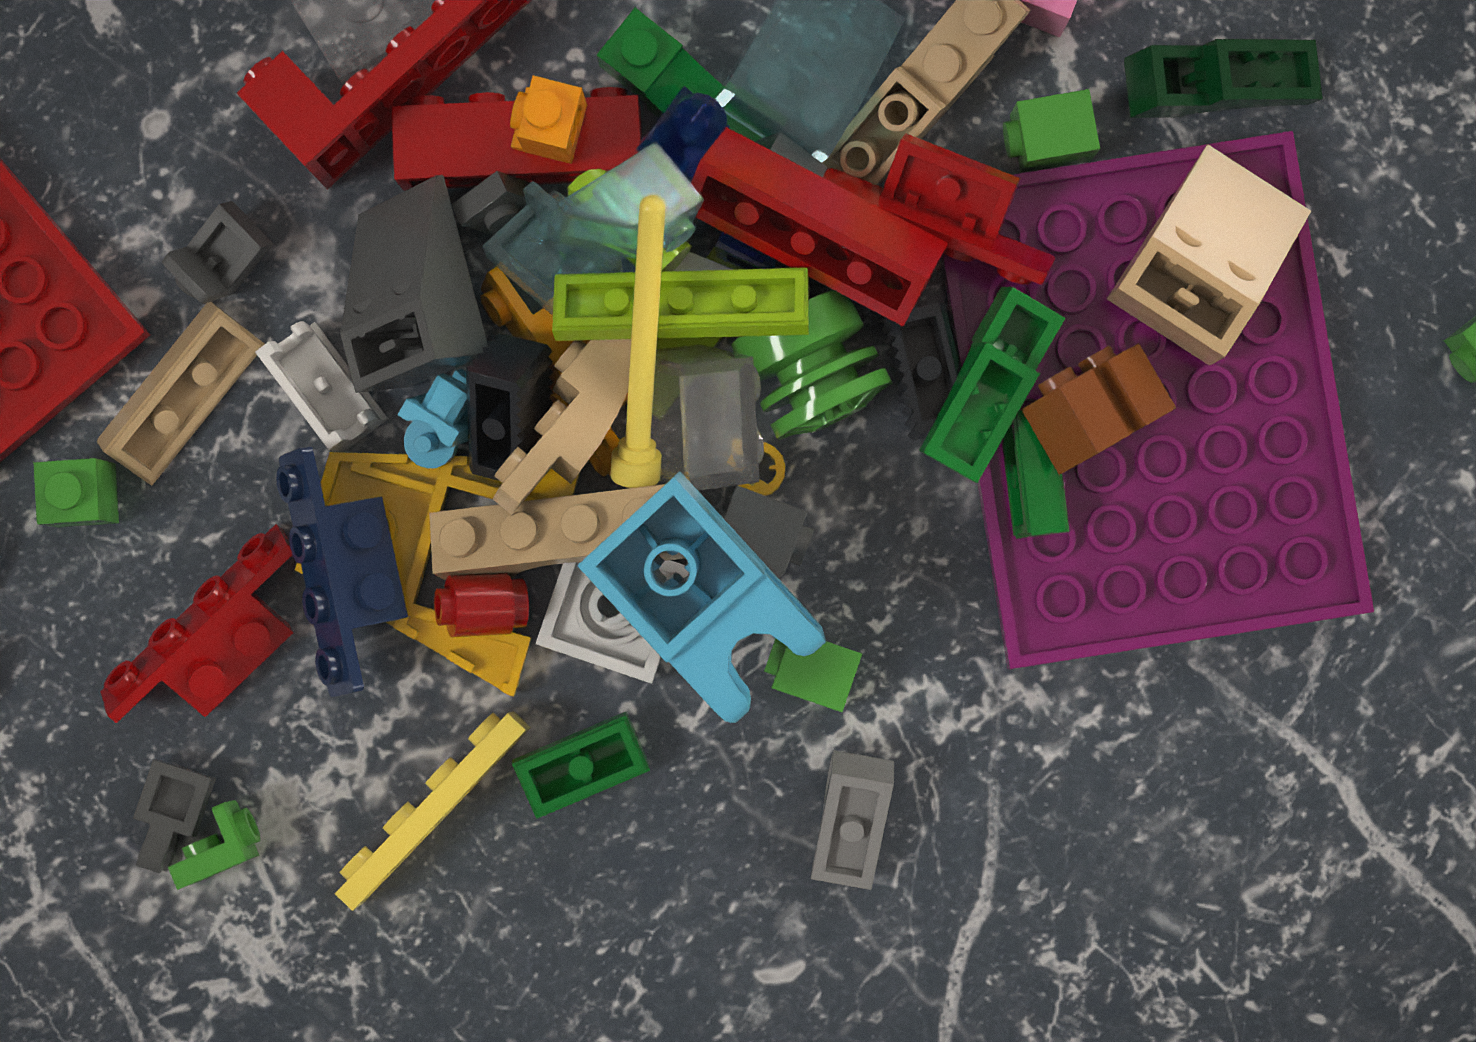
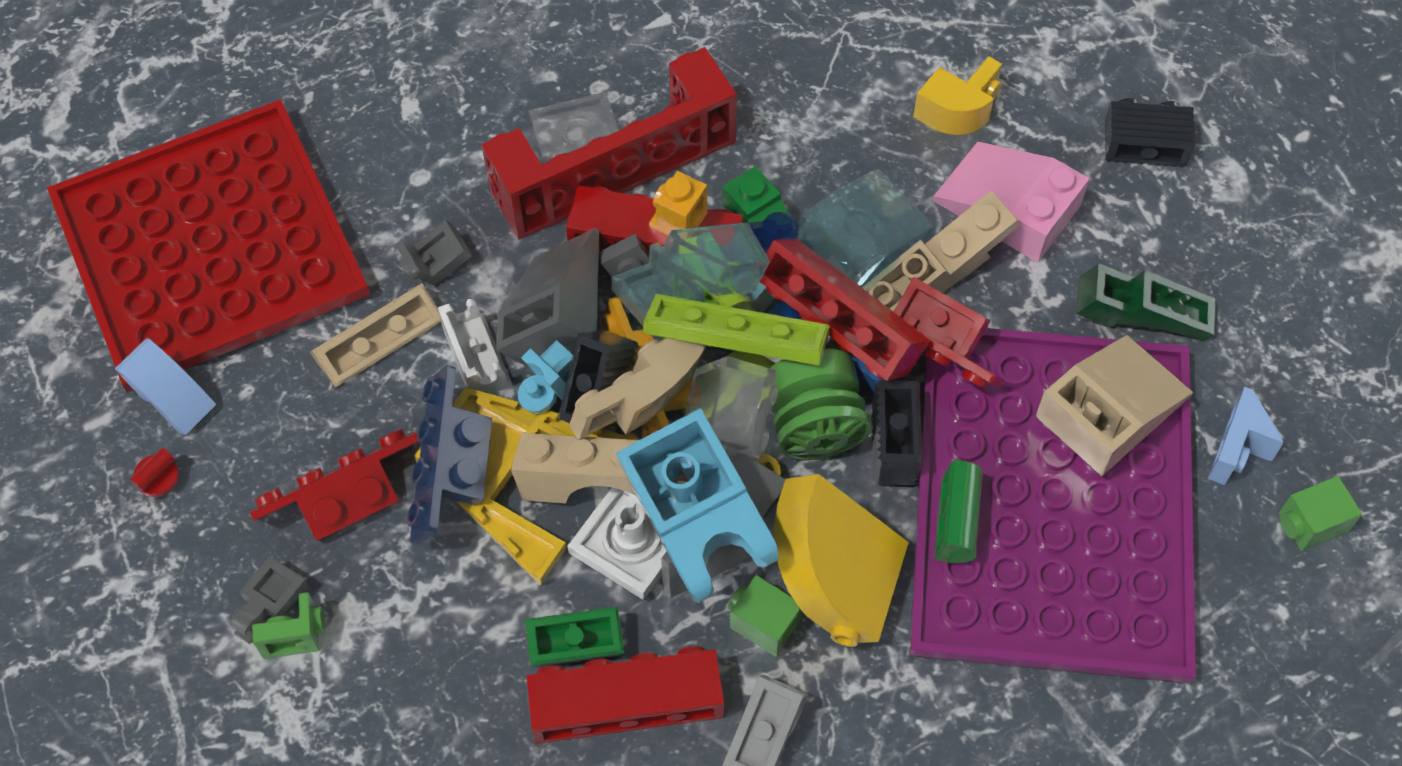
camera: 10 degrees right, 25 degrees down
(76, 492) = (284, 372): bright green brick -> none
(412, 825) = (443, 649): light yellow plate -> none
(481, 604) = (538, 505): red brick -> none
(636, 459) = (706, 330): light yellow piece -> none
(666, 823) = (625, 695): none -> red brick
(892, 589) = (836, 559): none -> yellow brick
(992, 382) = (940, 439): green slope -> none
(1052, 131) = (1020, 306): bright green brick -> none
(1097, 407) = (1013, 471): dark orange brick -> none
(1384, 236) = (1246, 433): none -> light blue slope

